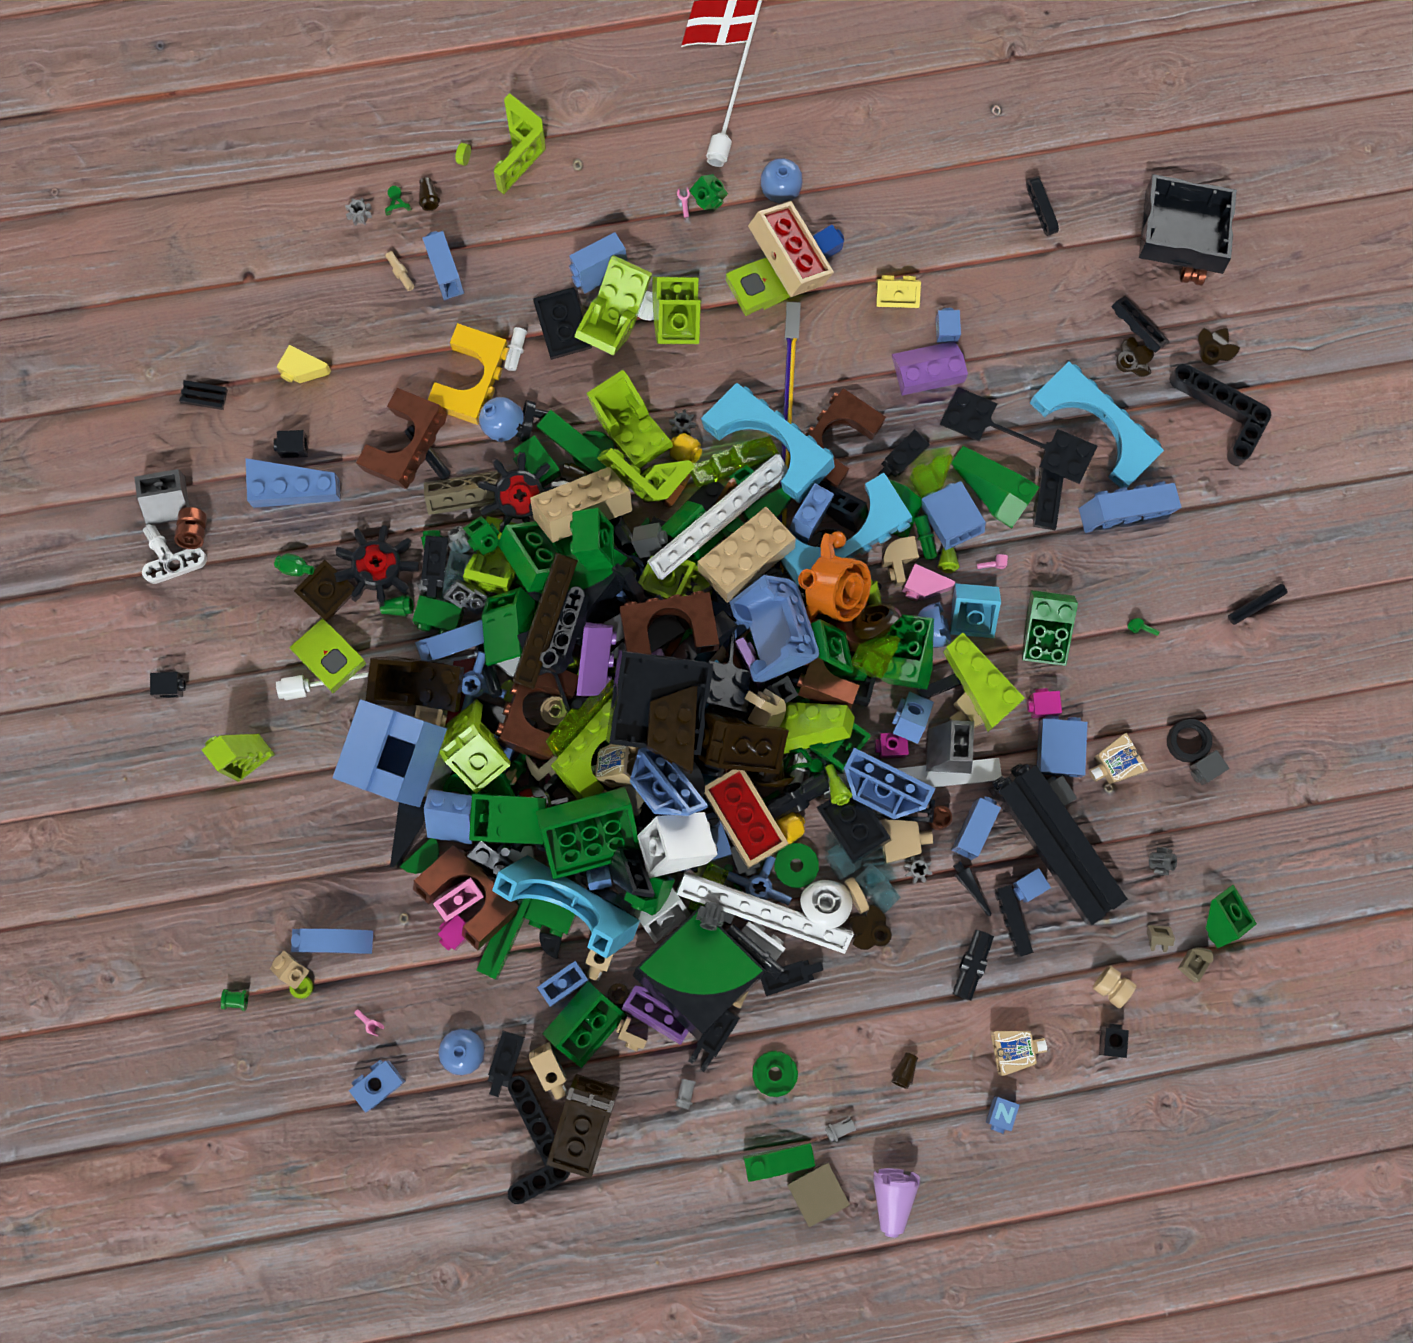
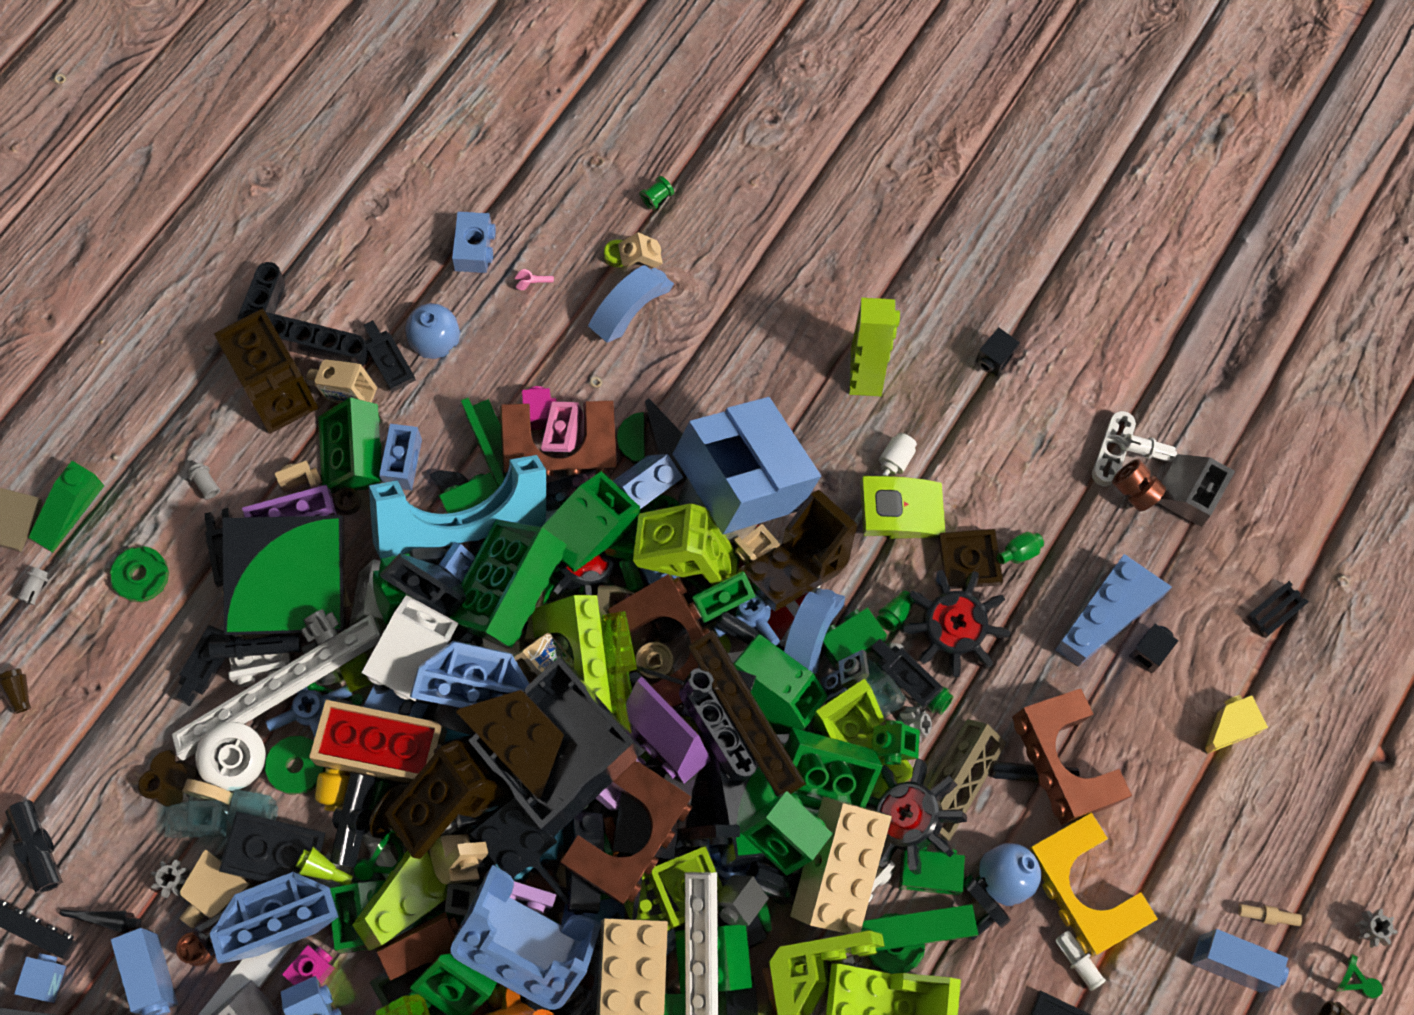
camera: 135 degrees right, 10 degrees down
(482, 701) = (723, 596): none -> green slope
(572, 472) = (885, 900): dark brown cone -> none

